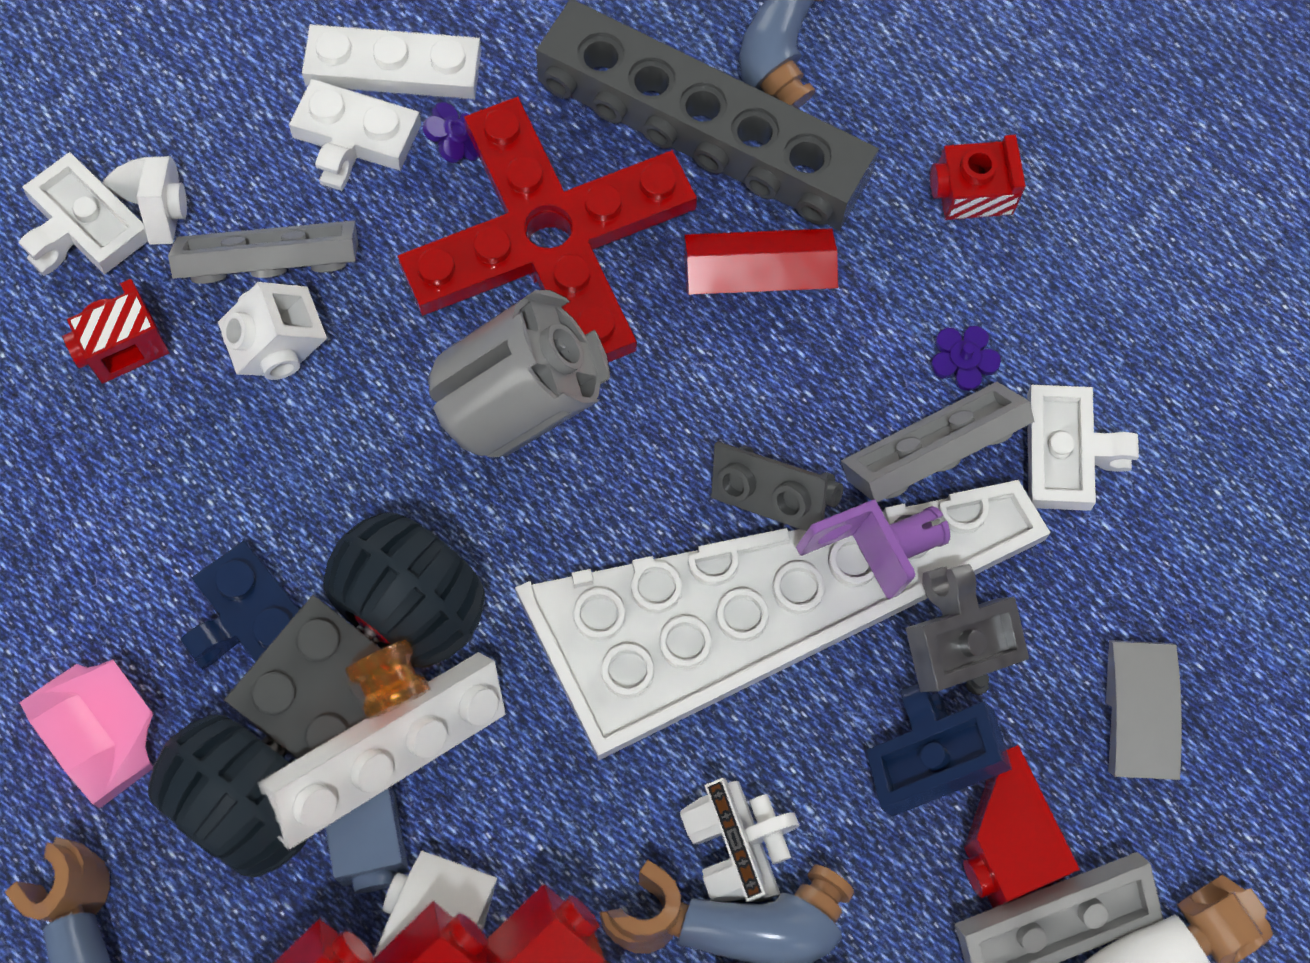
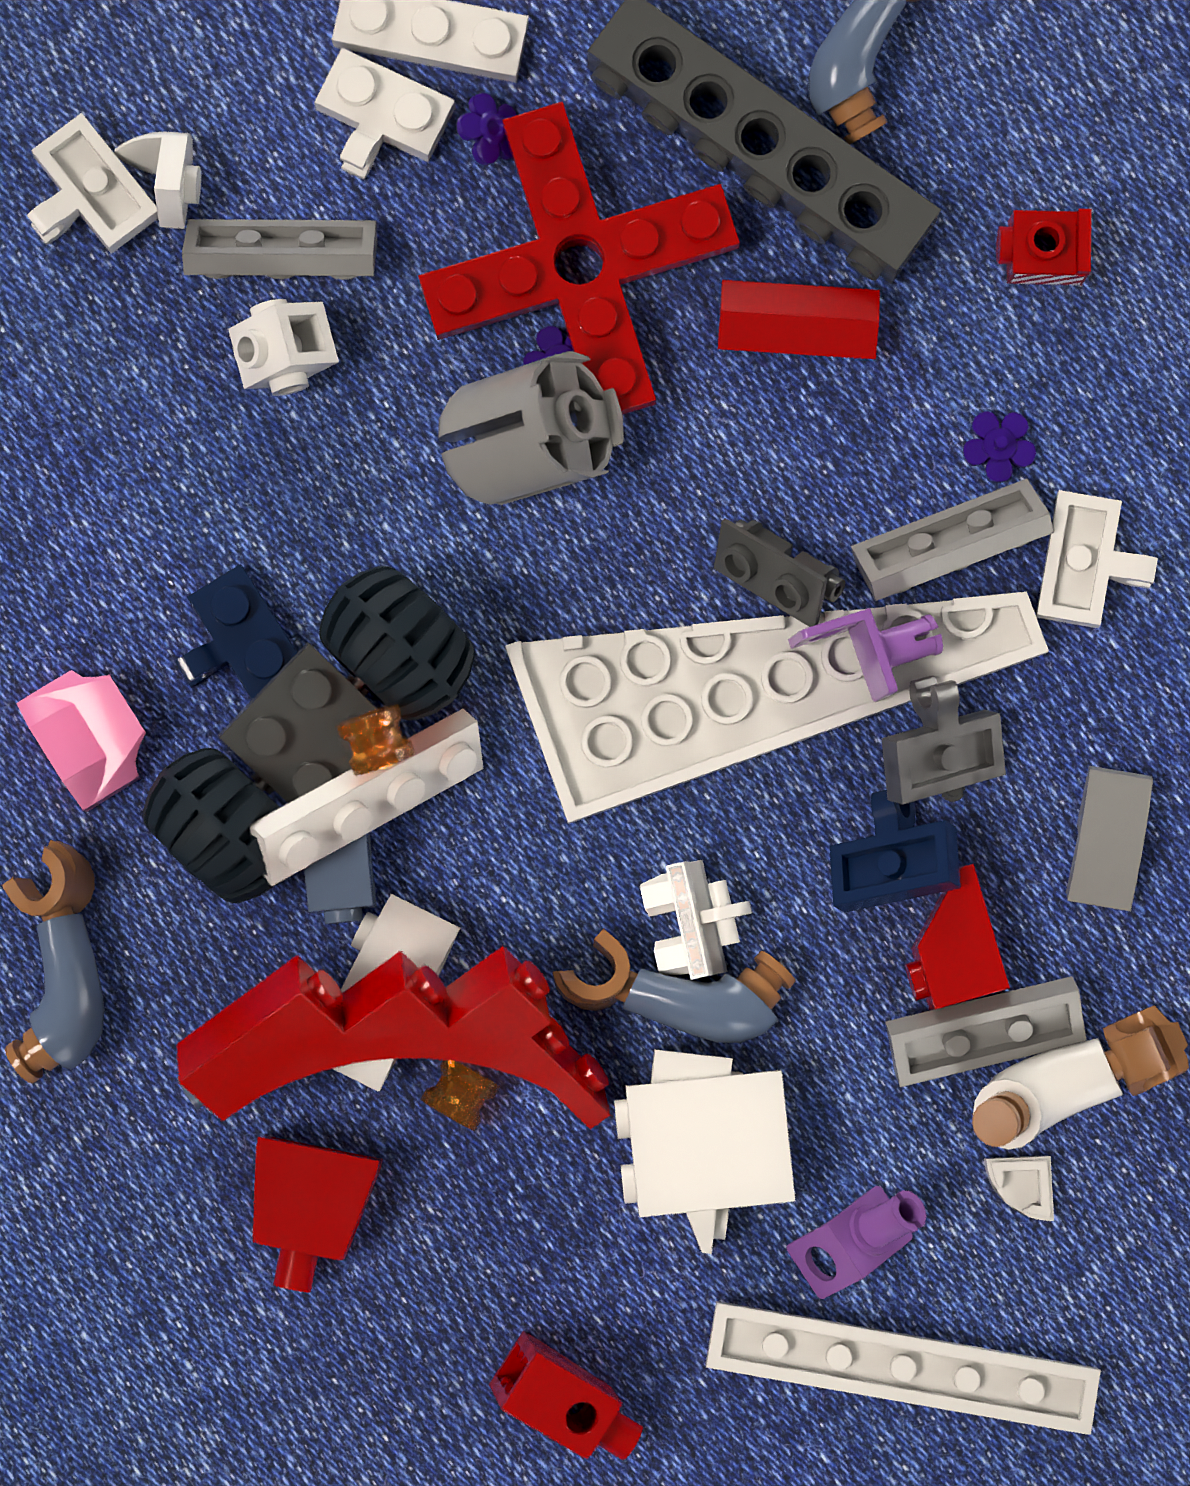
camera: 10 degrees right, 15 degrees up
(115, 335) = (121, 327): red brick -> none

